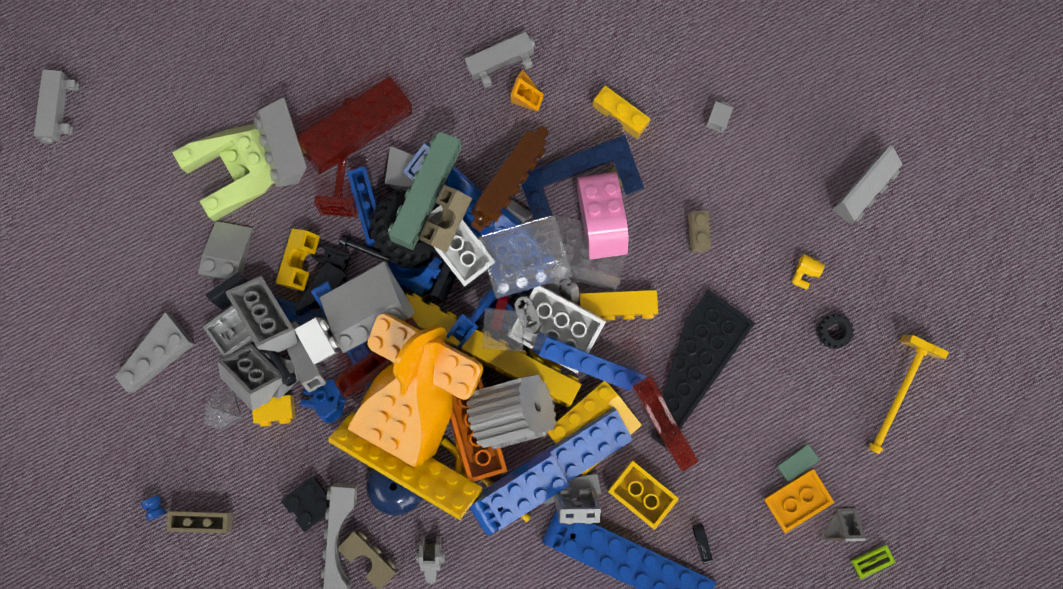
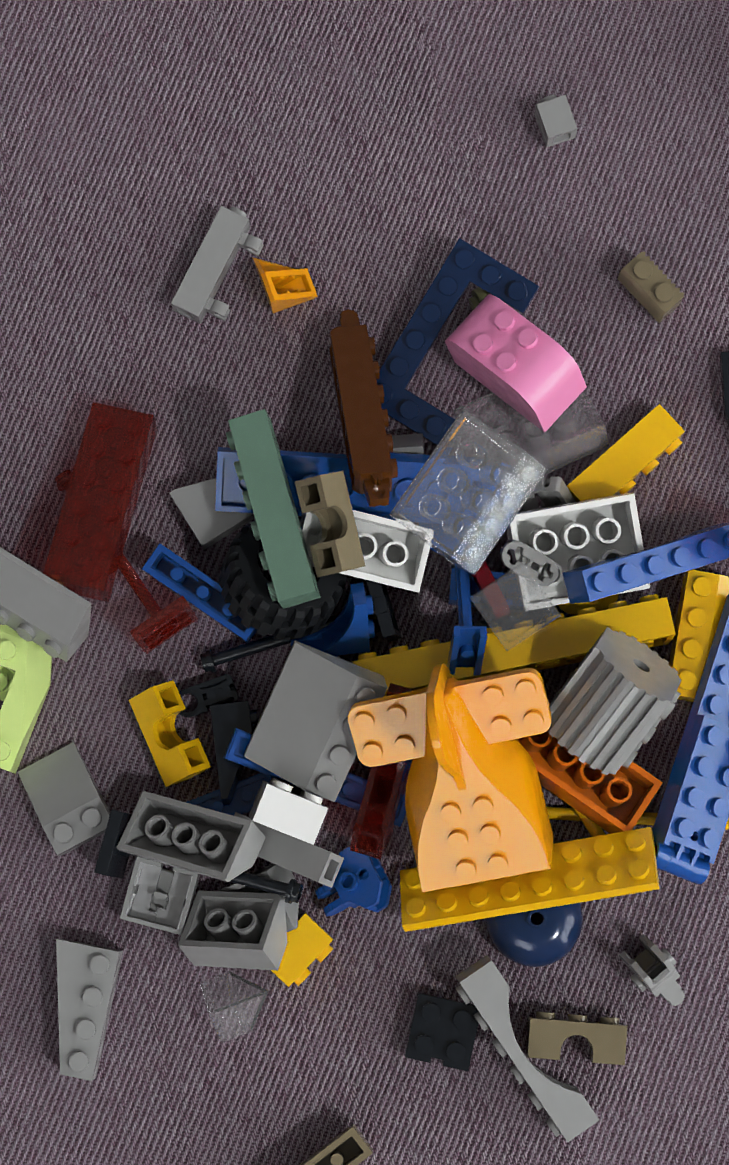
camera: 35 degrees left, 0 degrees up
(630, 117) = (442, 210): yellow arch -> none

